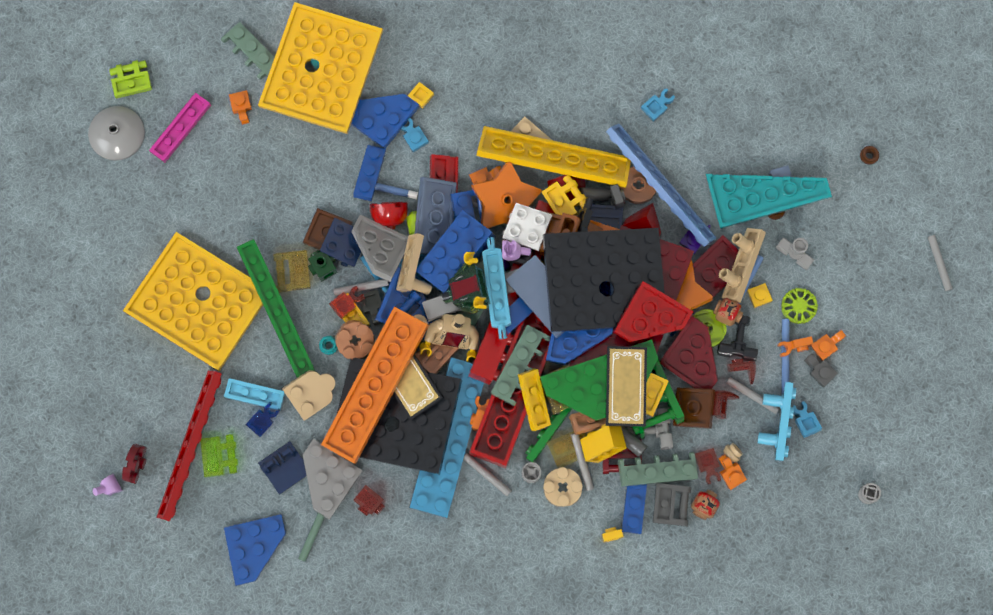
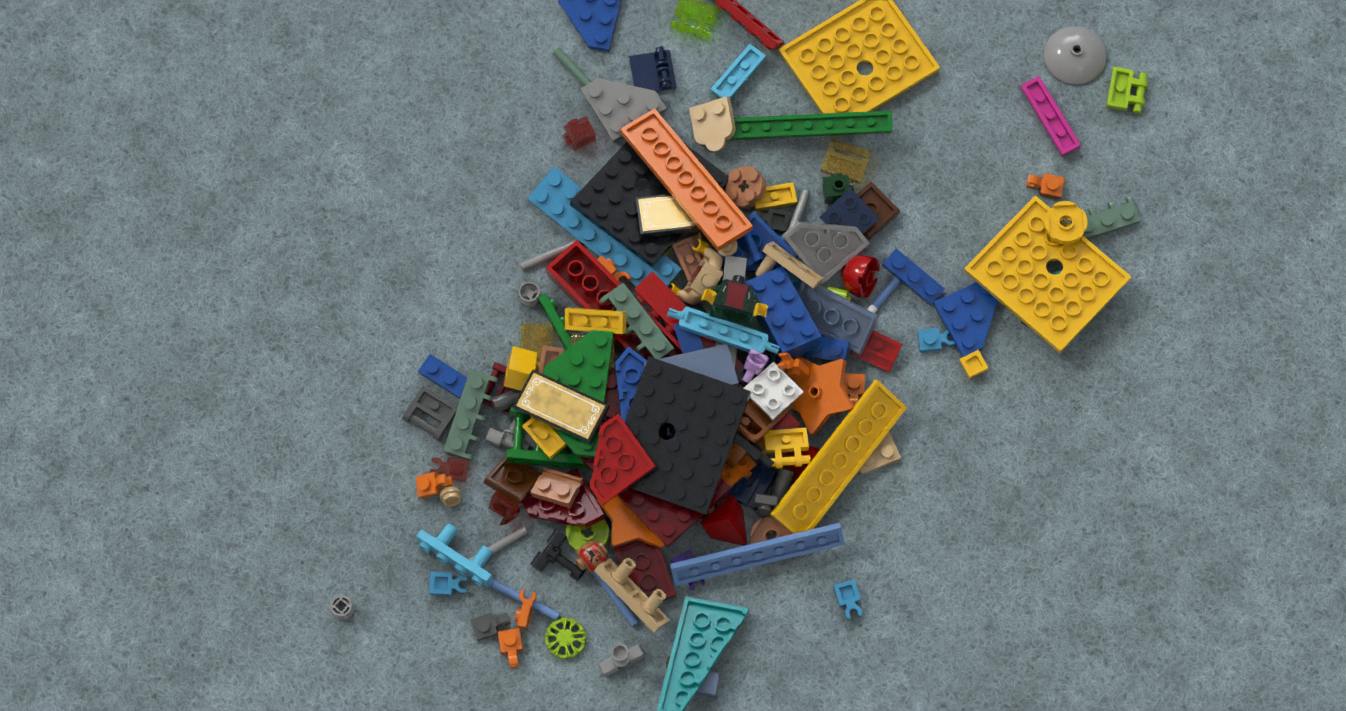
camera: 115 degrees right, 5 degrees down
(261, 420) = (708, 69): clear blue plate -> none
(282, 73) = (1058, 232): none -> yellow plate
(324, 341) = (754, 157): teal plate -> none
(344, 304) = (785, 190): clear red plate -> none
(498, 223) = (792, 367): none -> orange plate
(562, 476) = (501, 307): tan plate -> none
(582, 463) = (507, 346): light grey bar -> none
(612, 534) = (430, 342): yellow plate -> none
(685, 367) = (557, 487): none -> nougat plate
(705, 504) = (413, 444): medium nougat head -> none
(738, 365) = (533, 545): clear red plate -> none
(759, 295) = (595, 603): yellow plate -> none

